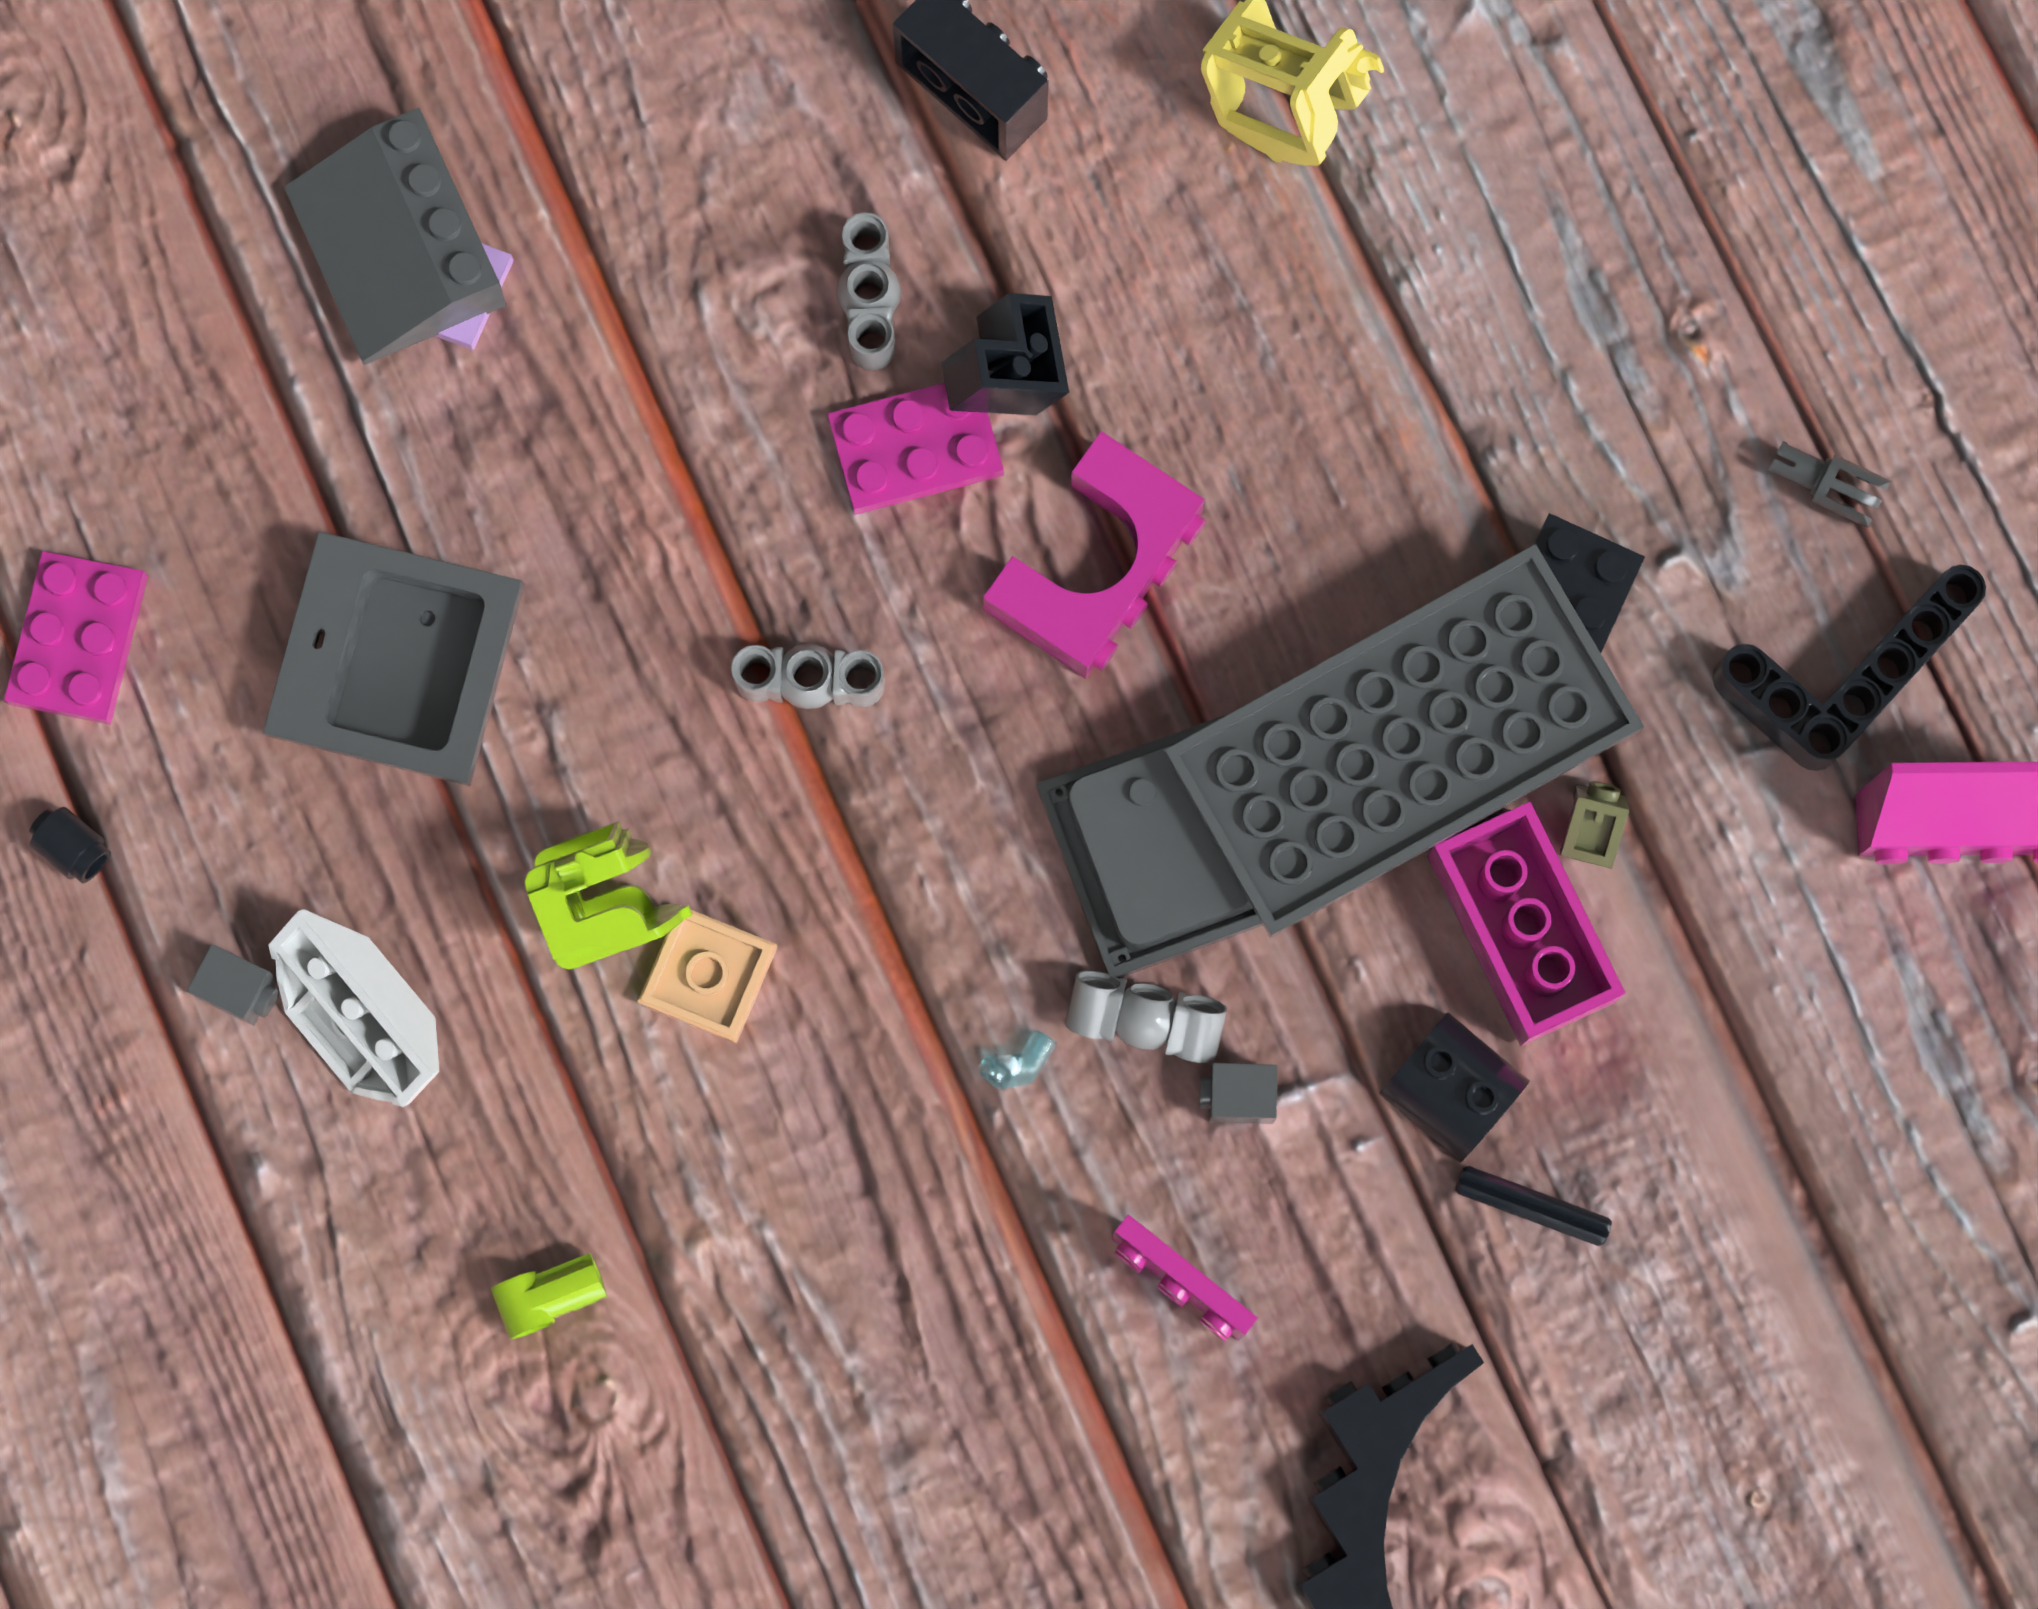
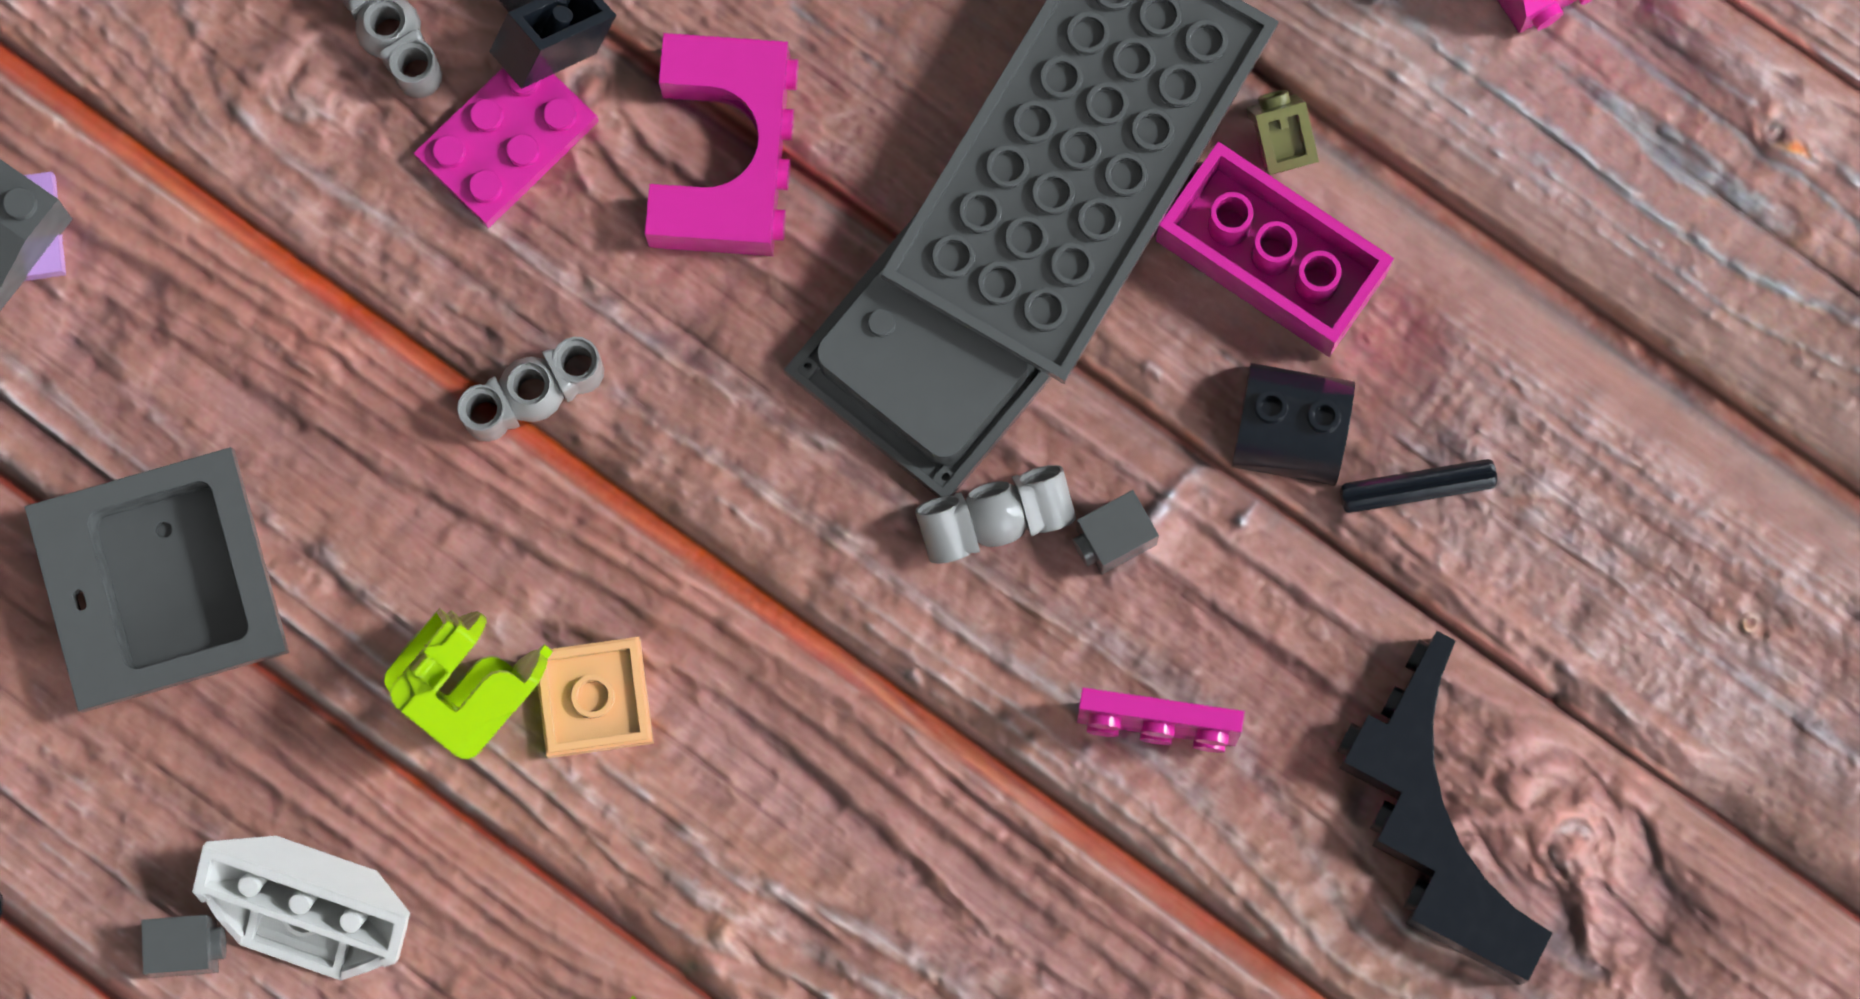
camera: 25 degrees left, 0 degrees up
(1020, 1068) = (912, 622): clear light blue arm -> none

